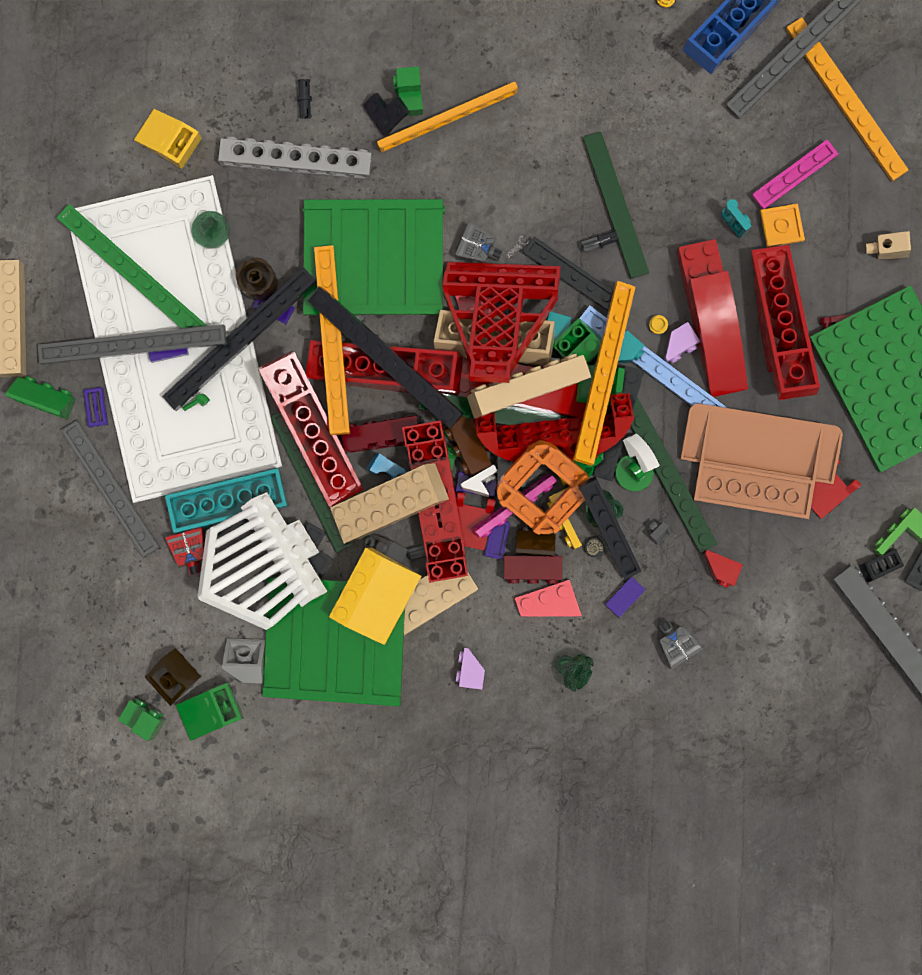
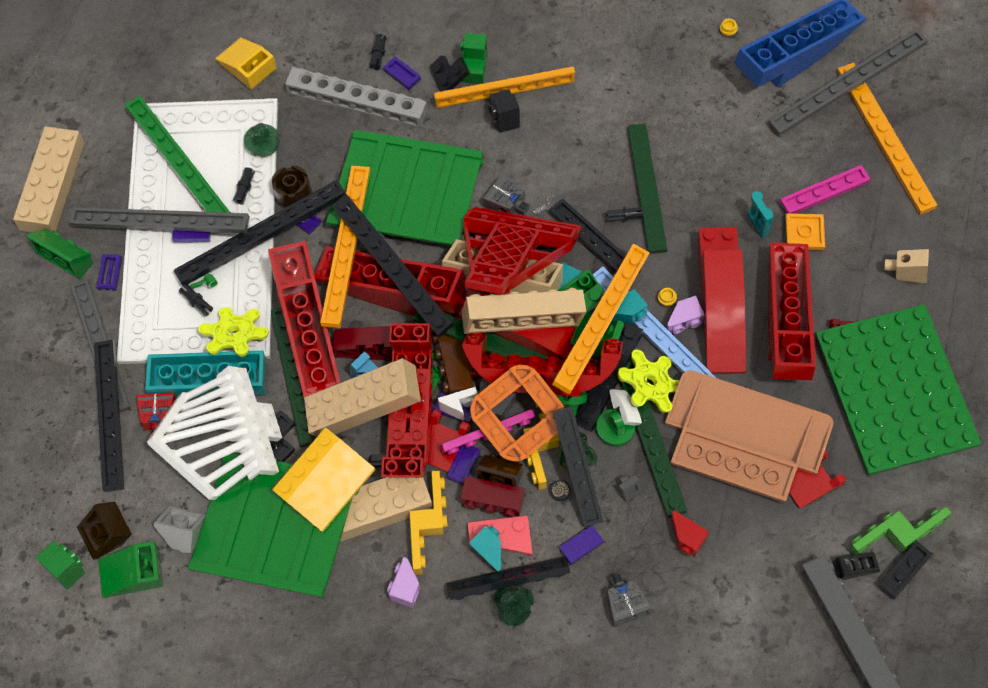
camera: 15 degrees right, 20 degrees down
(143, 562) = (109, 416): none -> black plate
(193, 423) = (195, 299): none -> black pin
(207, 286) = (244, 185): none -> black pin
(242, 441) = (226, 325): none -> neon yellow plate
(335, 118) = (402, 73): none -> dark purple tile
(453, 144) = (504, 110): none -> black brick
(478, 606) = (427, 523): none -> yellow bracket
(540, 619) = (489, 546): none -> teal slope
(564, 645) = (506, 578): none -> black plate
(664, 410) = (653, 371): none -> neon yellow plate

